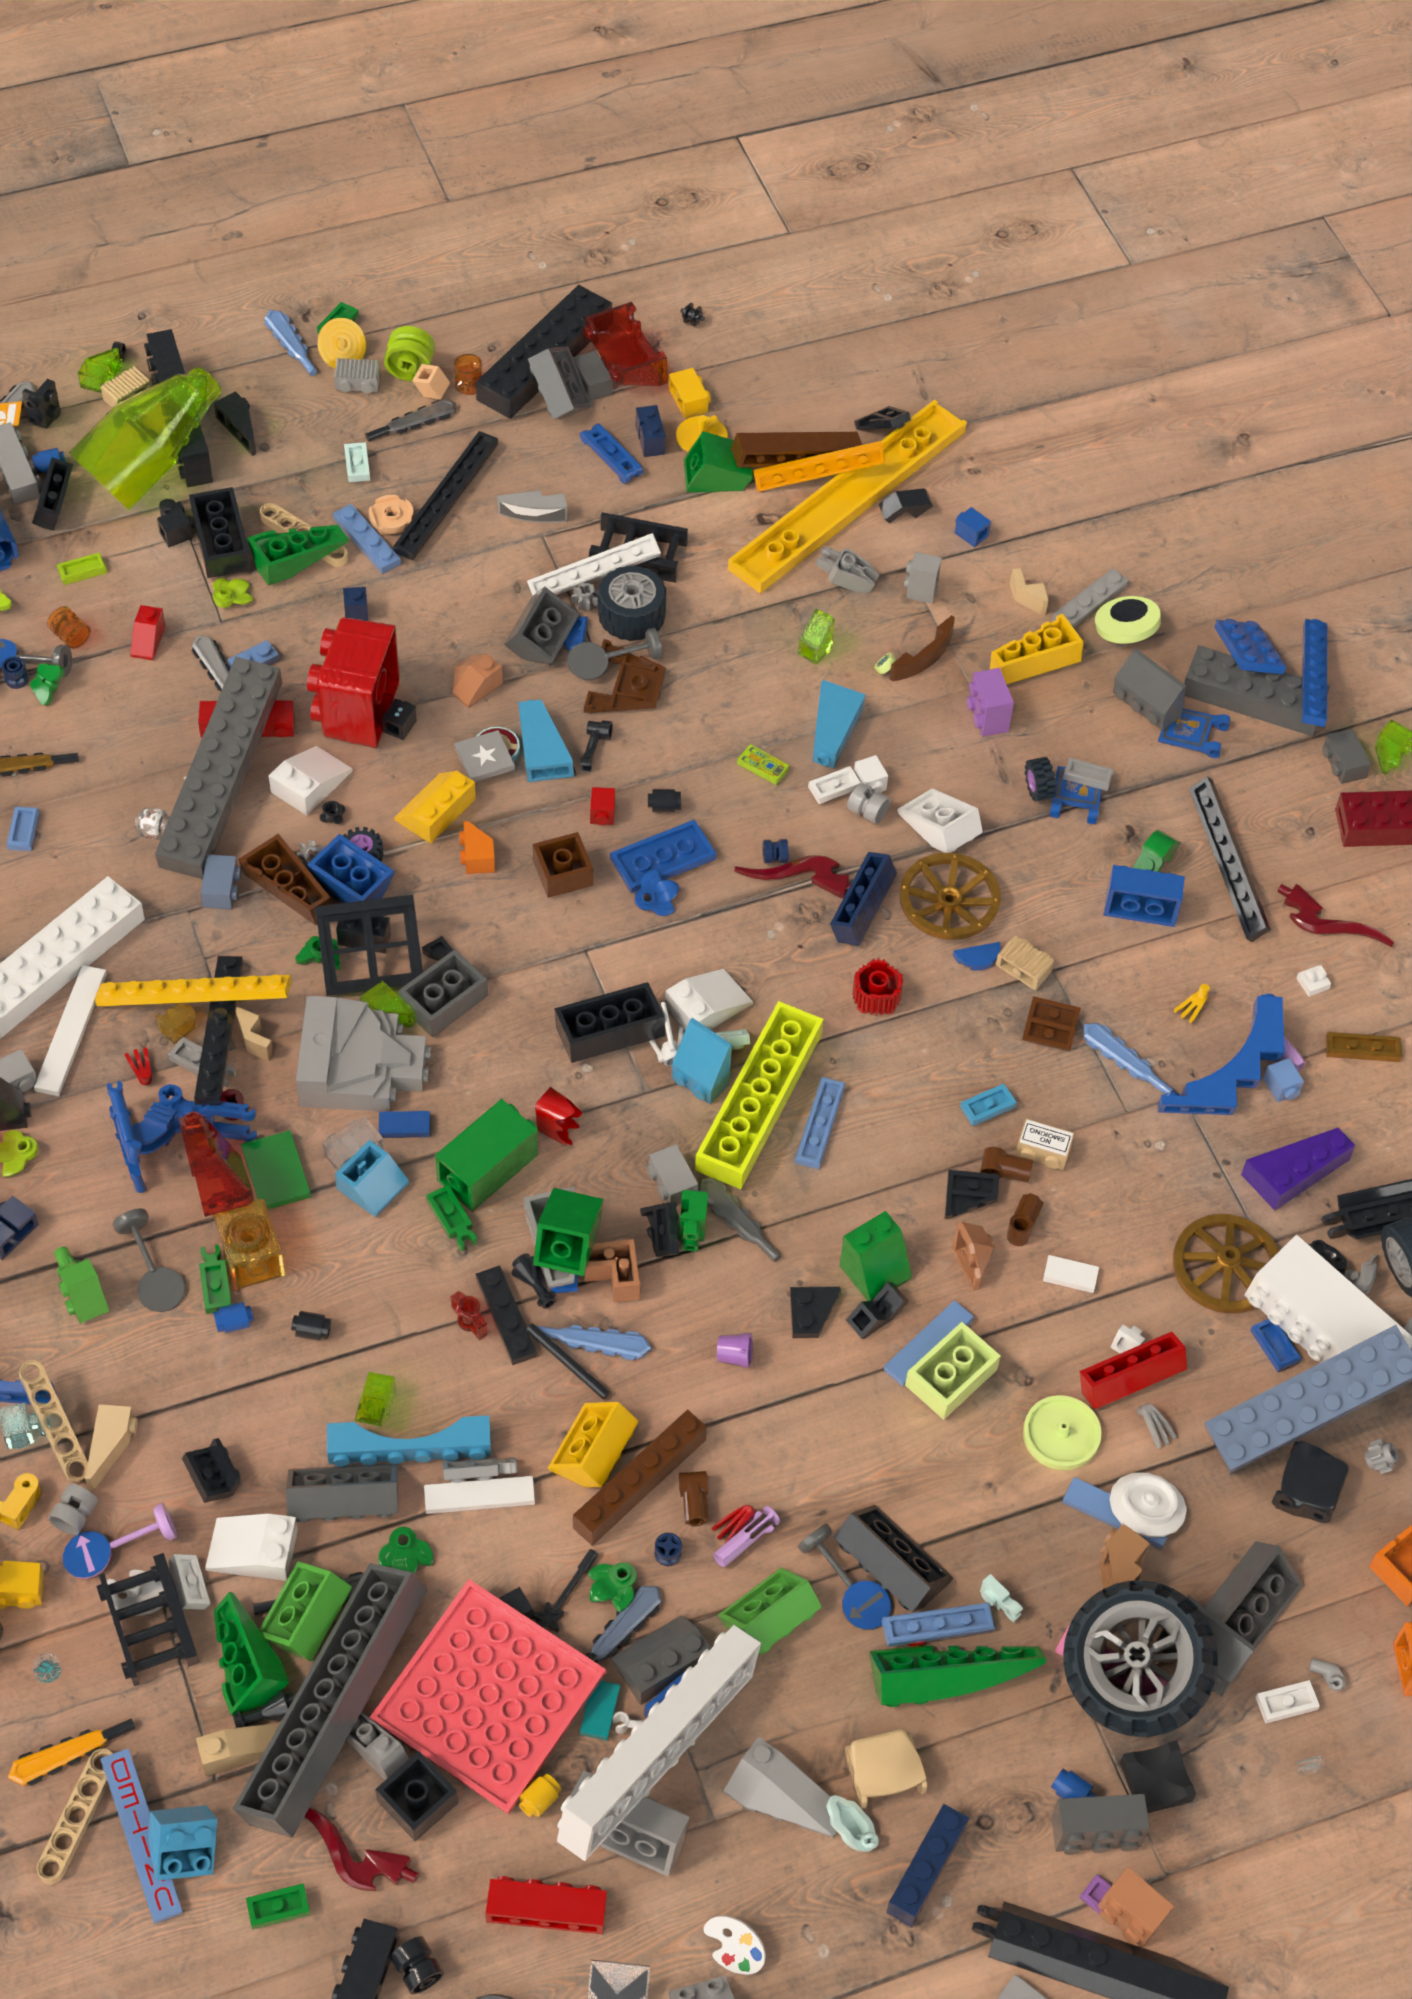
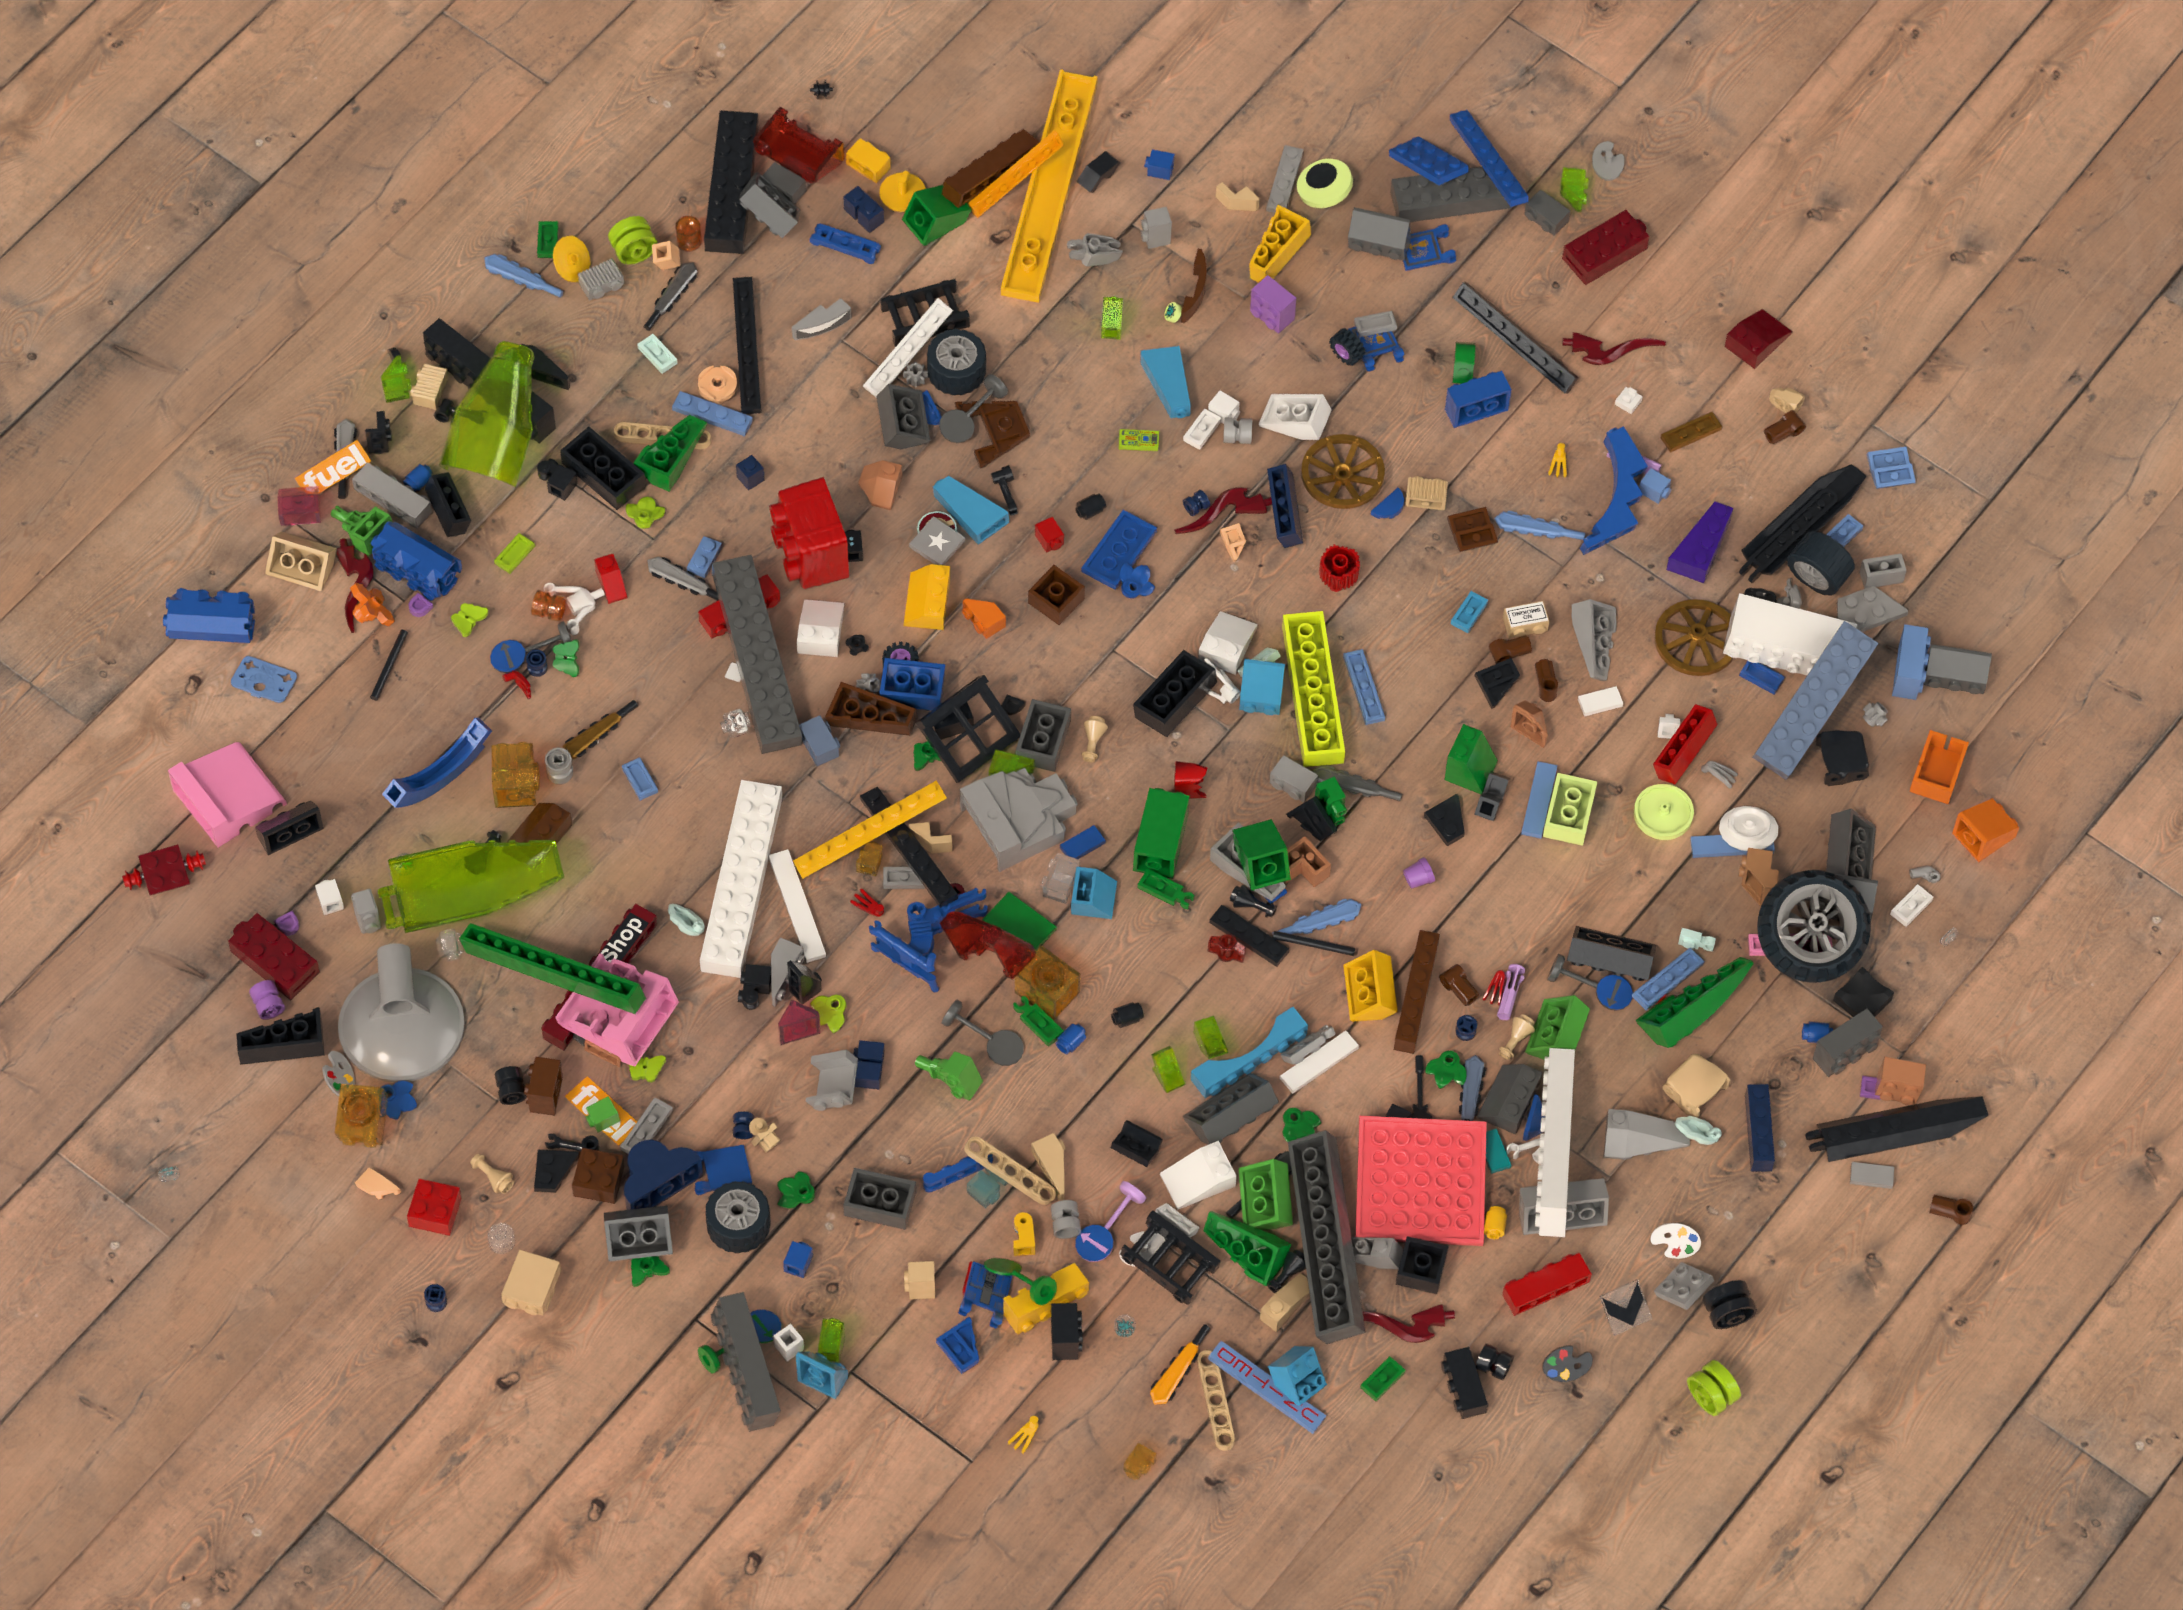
camera: 30 degrees left, 5 degrees up
(99, 640) = (578, 603): none -> white piece
(306, 1408) = (1167, 1069): none -> clear neon green slope
(503, 1015) = (1095, 728): none -> tan piece
(727, 1586) = (1521, 1028): none -> tan piece
(789, 907) = (1233, 540): none -> light nougat slope
(885, 418) = (1034, 105): black wing -> none
(1112, 1196) = (1594, 628): none -> light grey wedge

